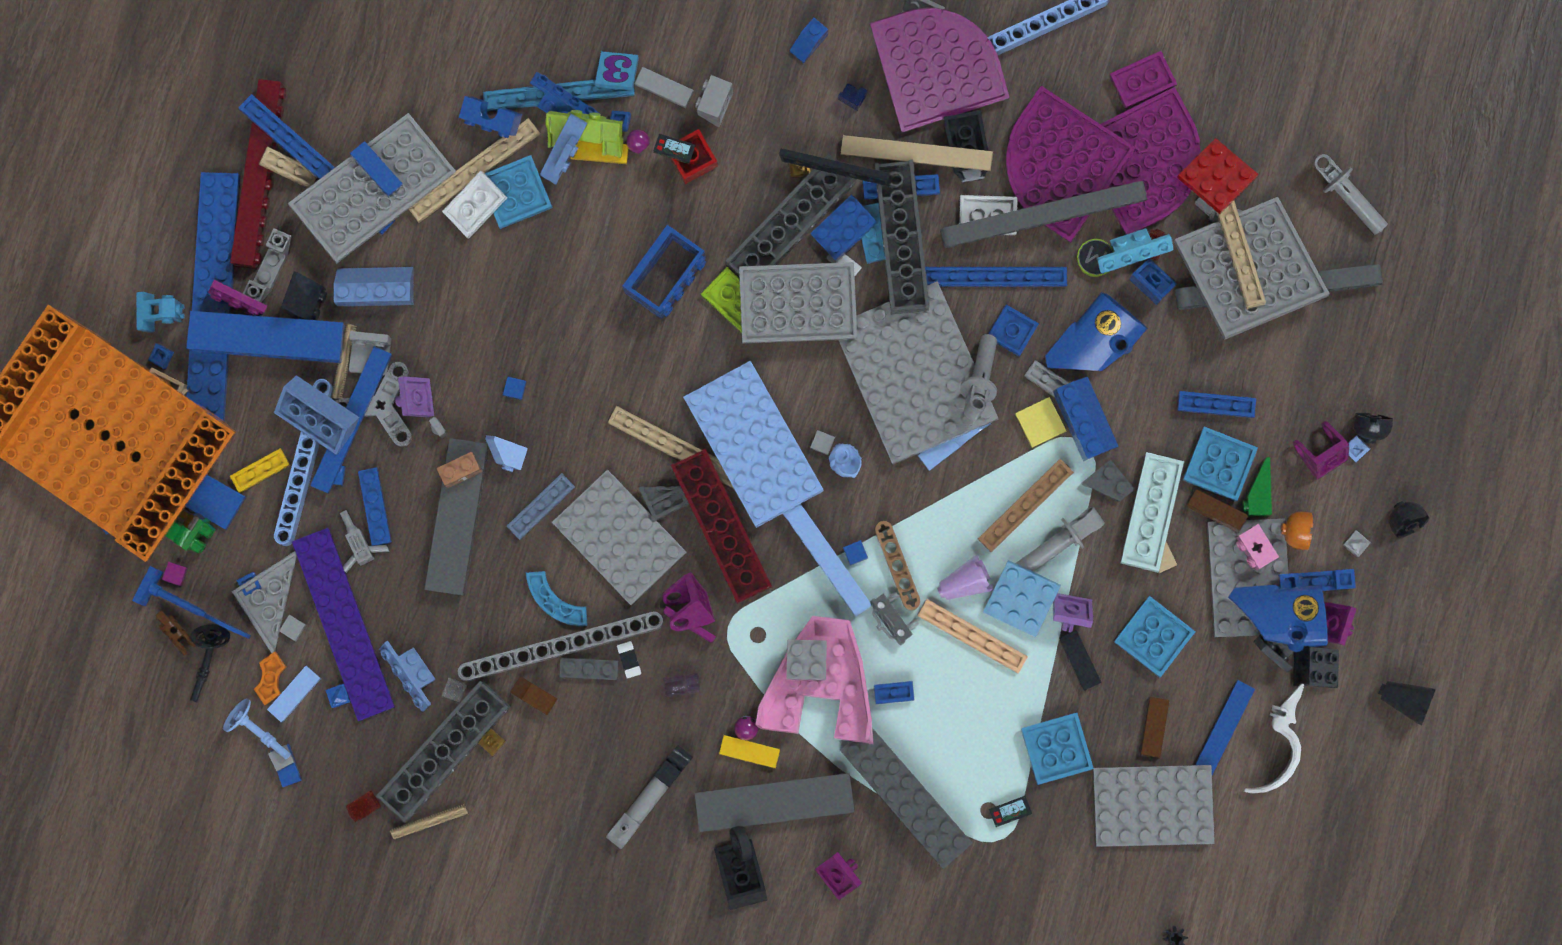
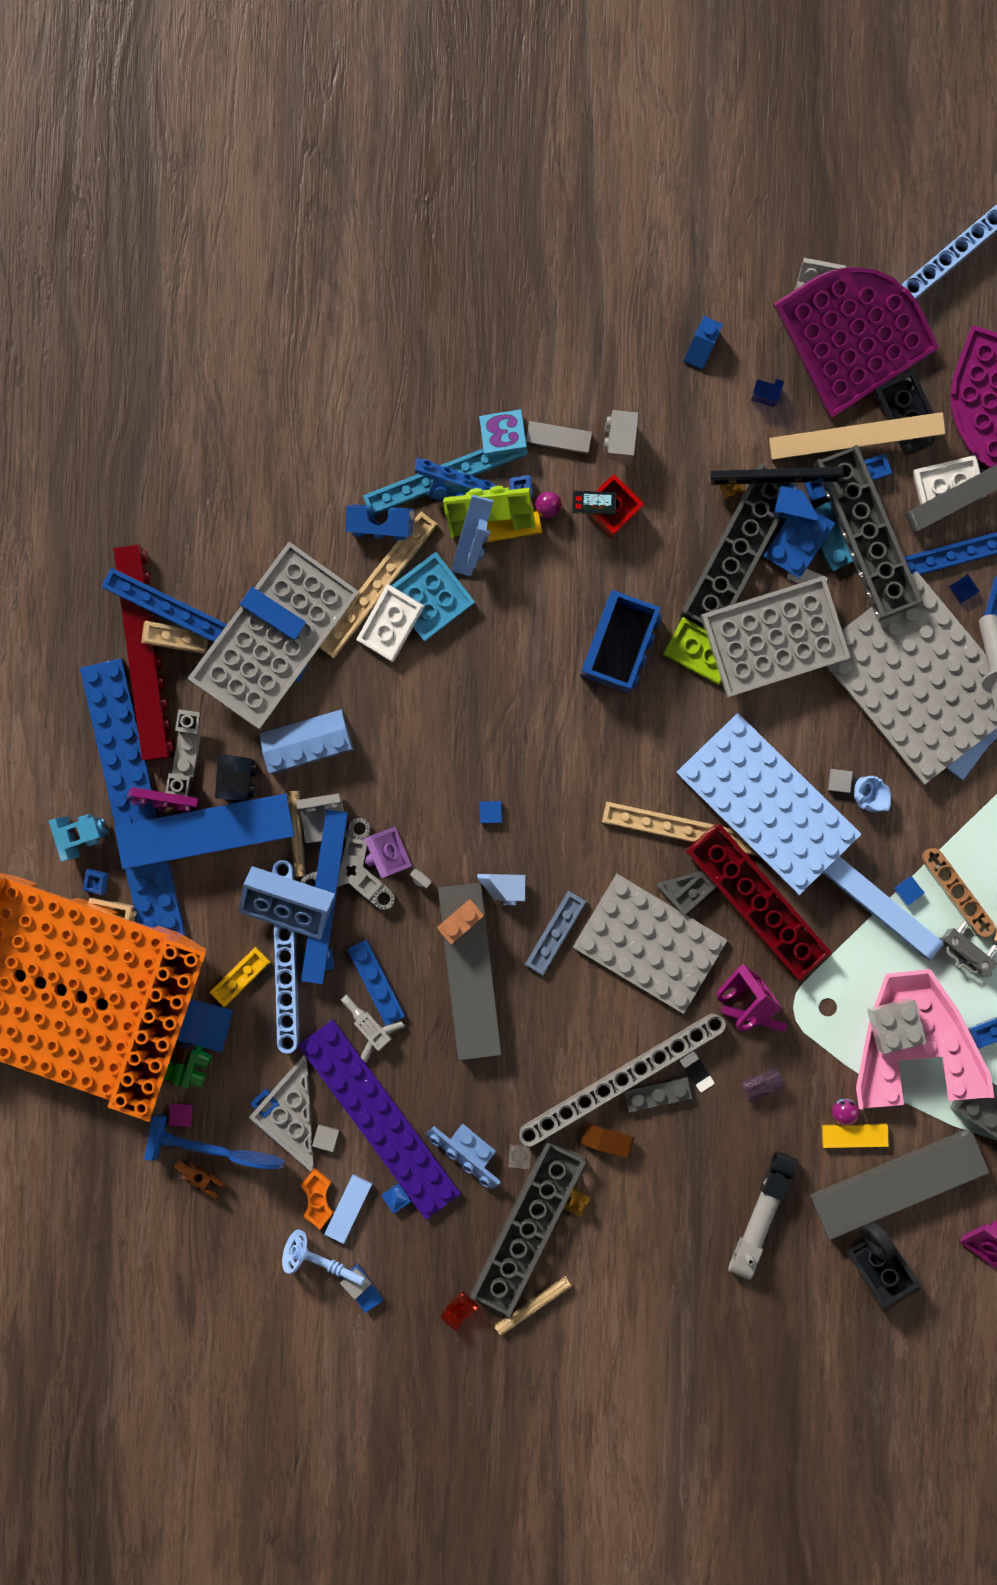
camera: 20 degrees left, 5 degrees up
(210, 643) = (242, 1181): black dish -> none
(552, 604) = (597, 1035): dark azure tile -> none
(843, 196) = (794, 505): none -> blue slope
(976, 308) = (964, 588): none -> clear blue tile

